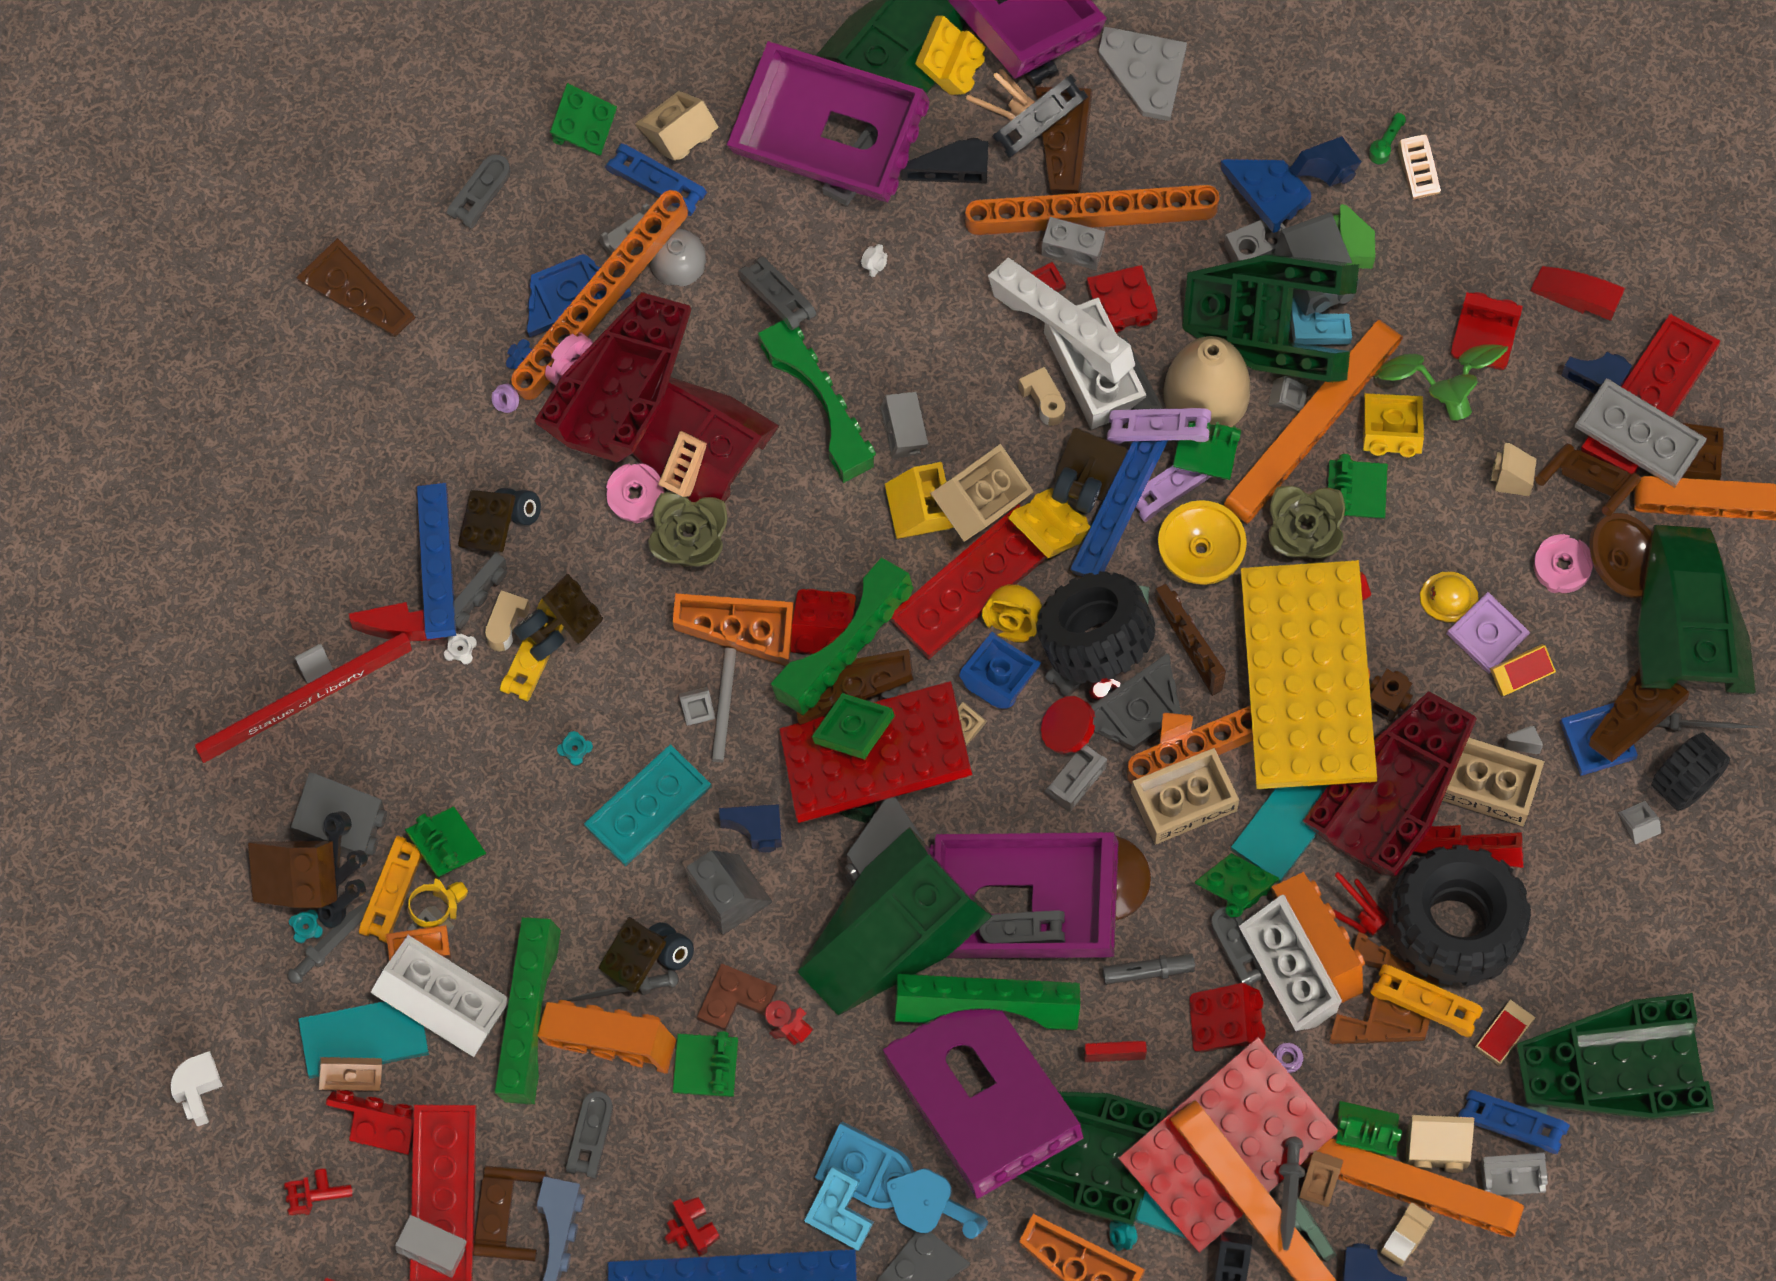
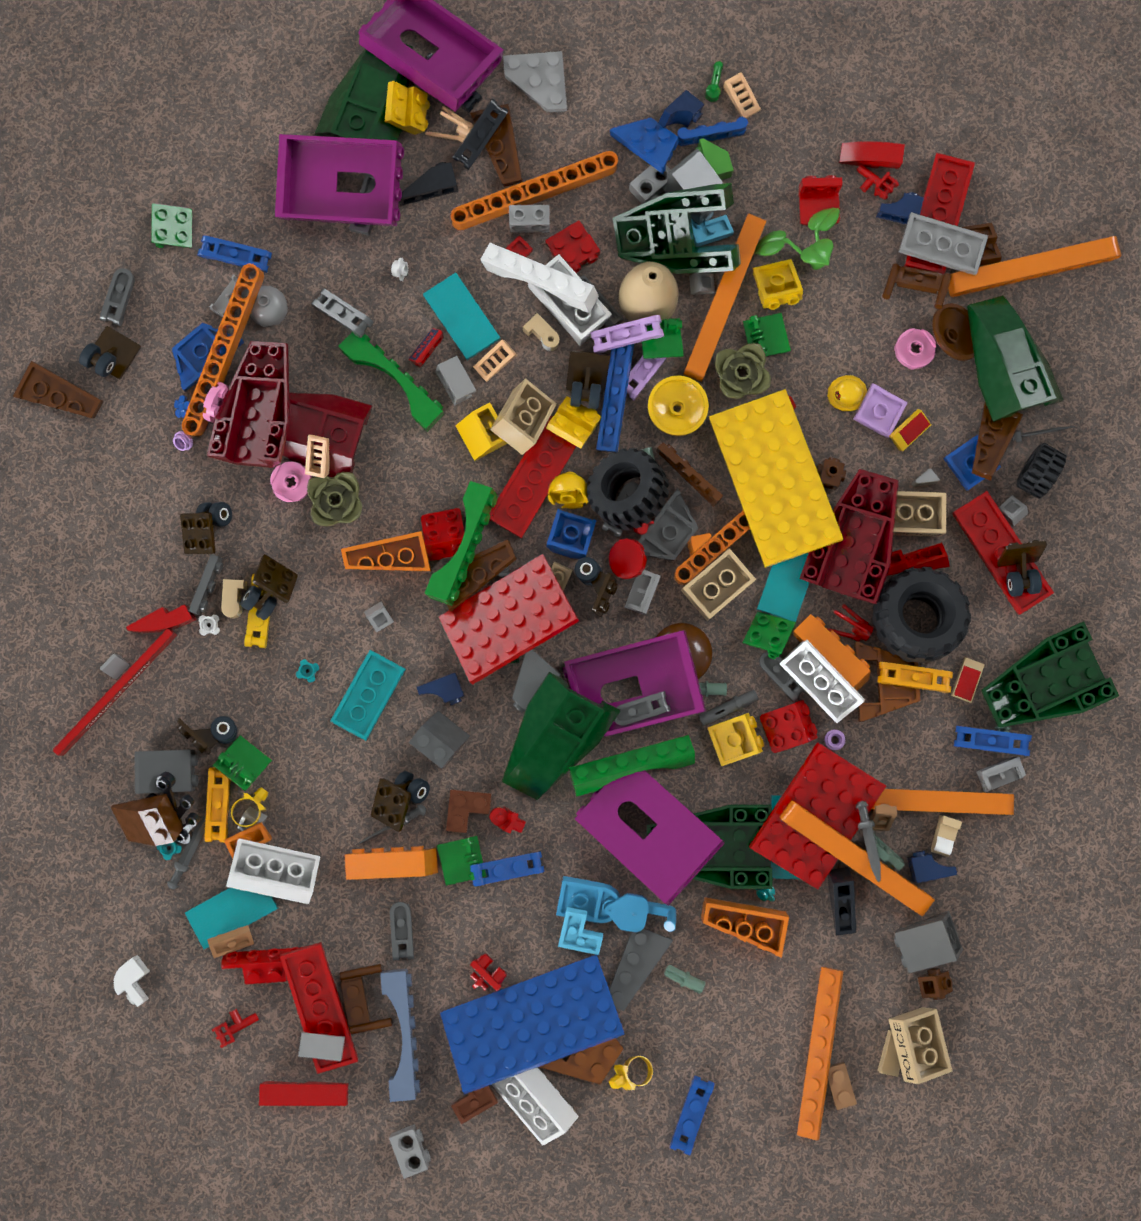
camera: 25 degrees left, 15 degrees up
(431, 791) = (221, 731): none -> plate
(436, 561) = (173, 571): blue plate -> none
(446, 258) = (110, 353): none -> dark brown plate
(519, 1053) = (338, 897): green arch -> none
(678, 125) = (237, 211): tan slope -> none
(724, 705) = (396, 610): light grey bar -> none
(766, 1090) = (507, 868): none -> blue plate
(853, 726) = (488, 607): green plate -> none
(878, 372) = (426, 347): none -> red slope
(939, 345) = (461, 316): none -> teal tile
(972, 401) = (496, 349): none -> light nougat slope
(1024, 746) = (605, 584): none -> dark brown plate
(1115, 1051) = (725, 770): red tile -> none
(1134, 937) = (713, 688): none -> sand green axle
(1146, 1011) = (736, 739): none -> yellow plate
(1366, 203) = (718, 131): none -> blue plate
(1368, 1128) = (901, 773): green hinge -> none
(1439, 1142) = (950, 770): tan slope -> none
(1513, 471) = (866, 295): tan slope -> none
(1580, 335) = (881, 184): none -> red arm
(1606, 873) = (989, 535): none -> red plate
(1627, 875) = (1019, 555): none -> dark brown plate

